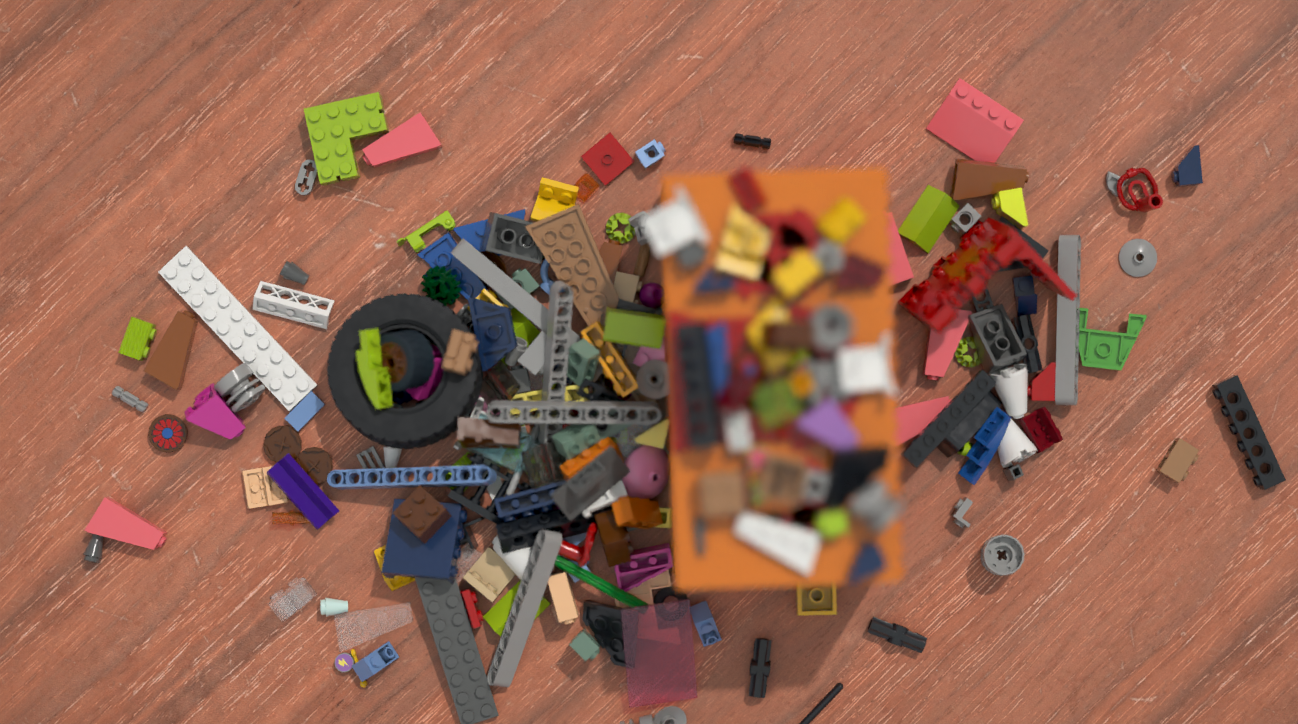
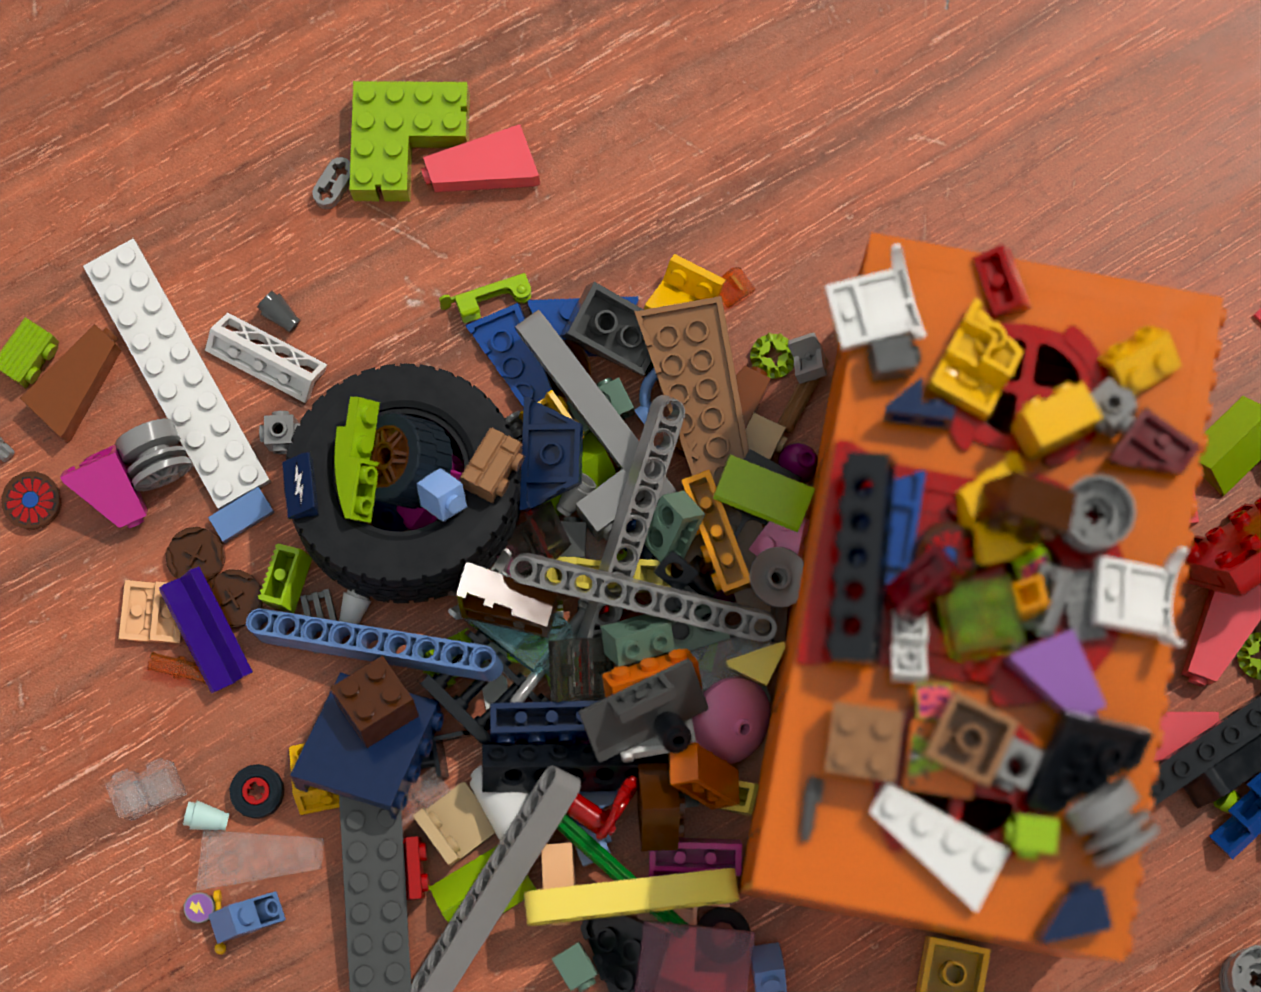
camera: 15 degrees right, 10 degrees down
(322, 358) = (278, 420): none -> light grey brick
(342, 393) = (300, 486): none -> dark blue slope
(344, 447) = (285, 578): none -> lime brick
(363, 573) = (249, 805): none -> black bush
(432, 379) = (441, 494): none -> light blue brick
(441, 285) = (491, 376): dark green gear -> none
(607, 159) = (775, 254): red plate -> none
(609, 596) = (631, 896): none -> light yellow beam
(610, 493) = (672, 732): none -> black brick
(647, 161) = (843, 249): light blue brick -> none
(960, 509) = (1206, 890): light grey bracket -> none

